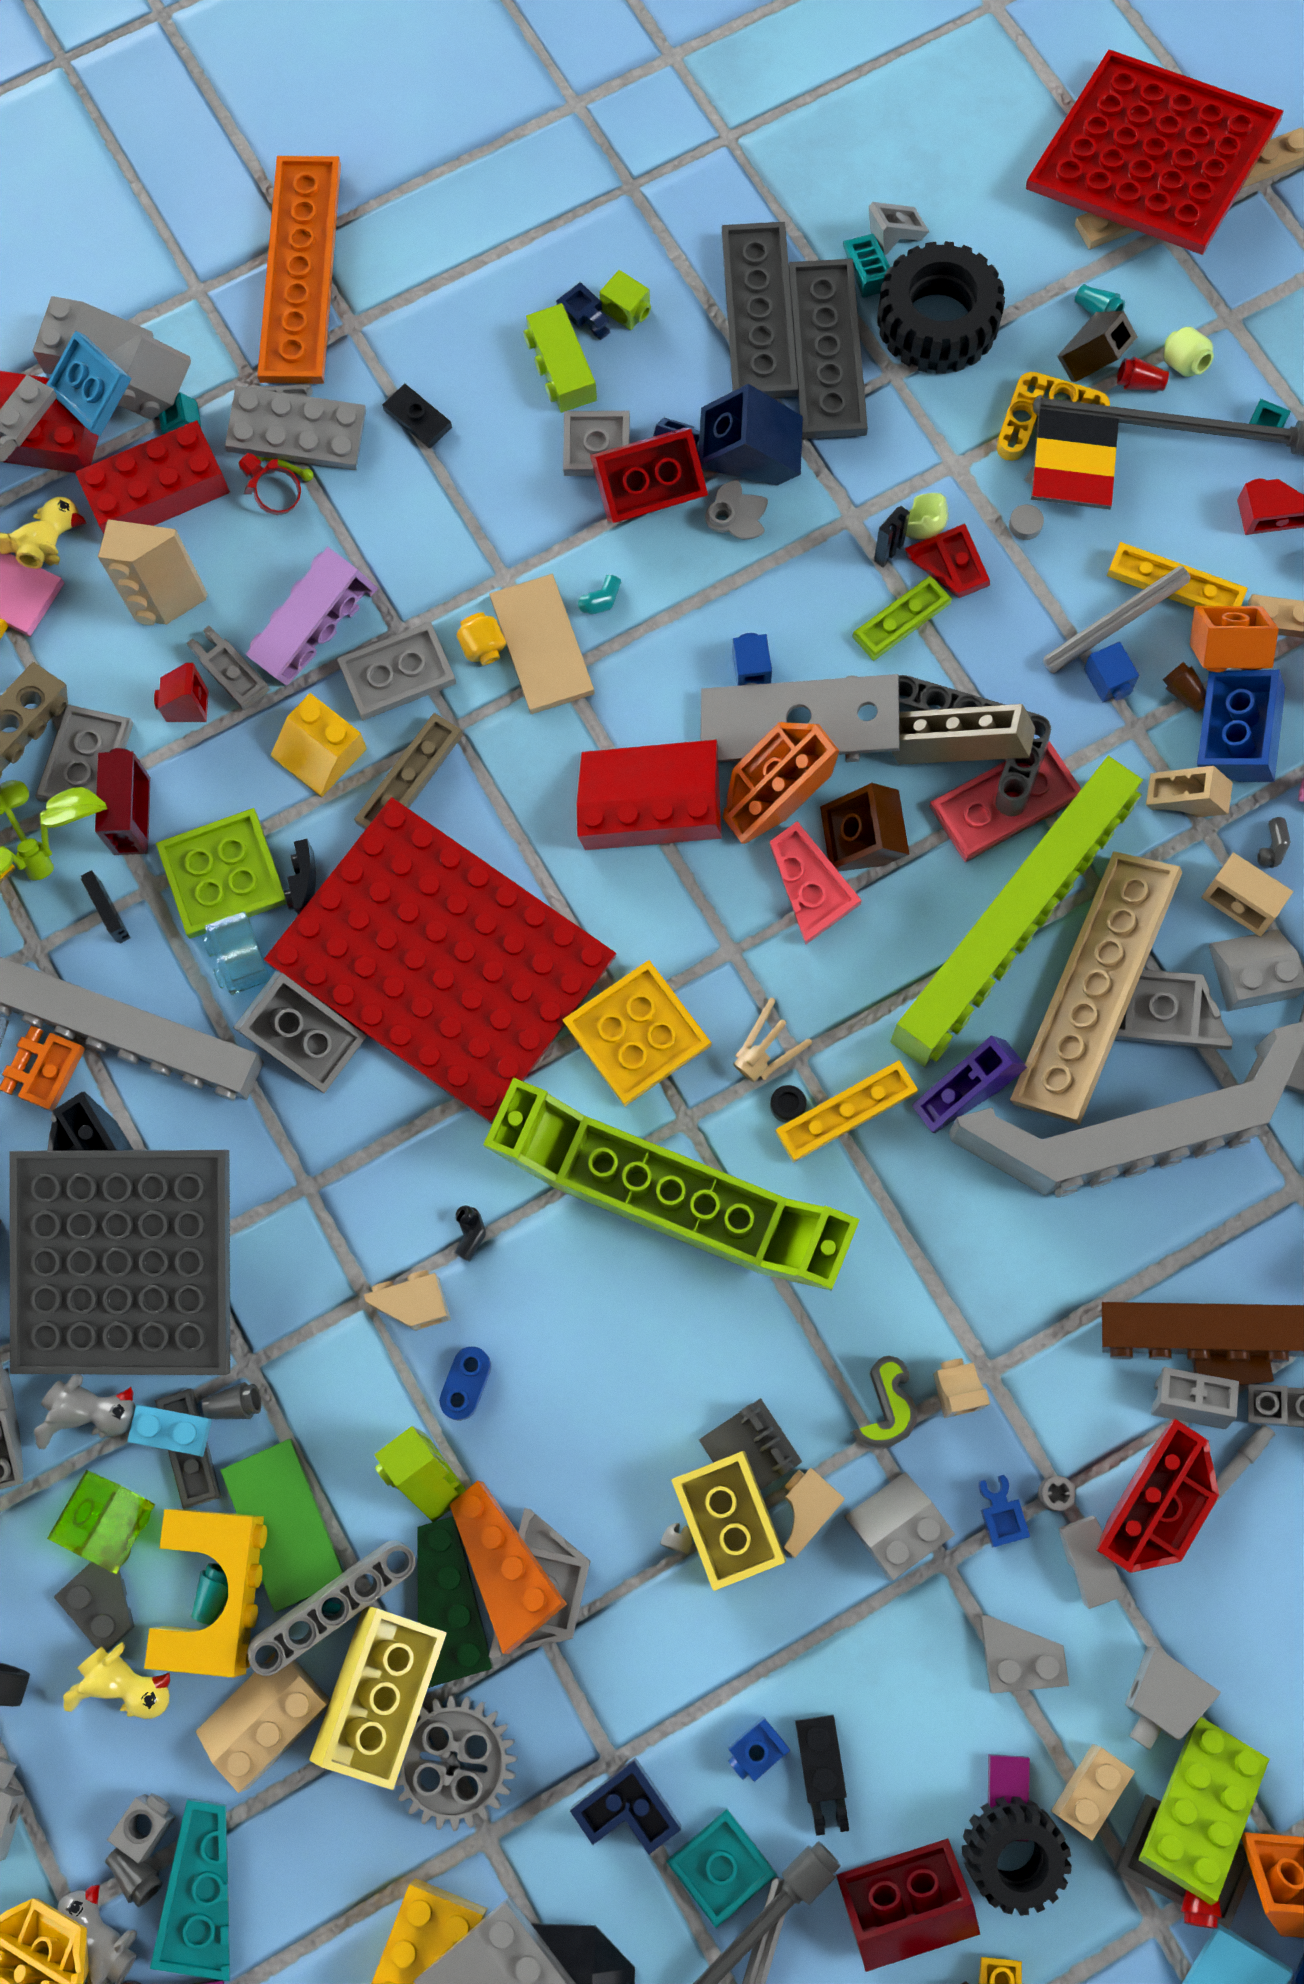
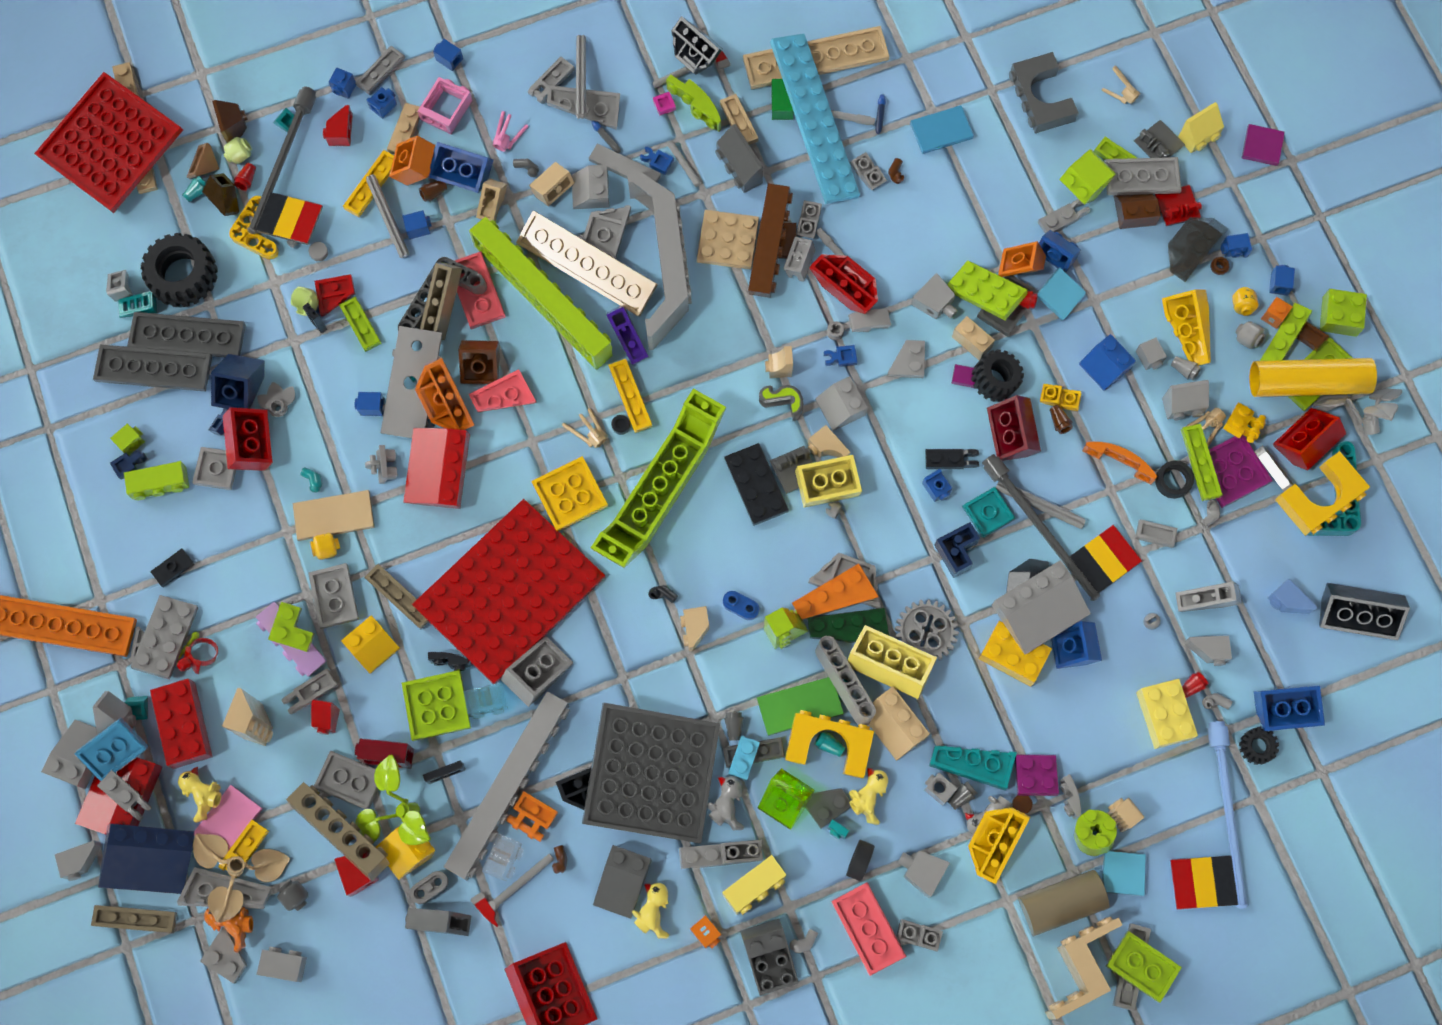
camera: 85 degrees left, 0 degrees up
(49, 1630) = (837, 830): none -> teal plate
(303, 599) = (285, 630): none -> lime brick
(658, 701) = (383, 456): none -> light grey hips
(709, 1378) = (756, 484): none -> black plate
(1154, 306) = (203, 161): none -> medium nougat slope
(1209, 1248) = (727, 239): none -> tan plate
(1240, 323) = (230, 119): none -> reddish brown slope

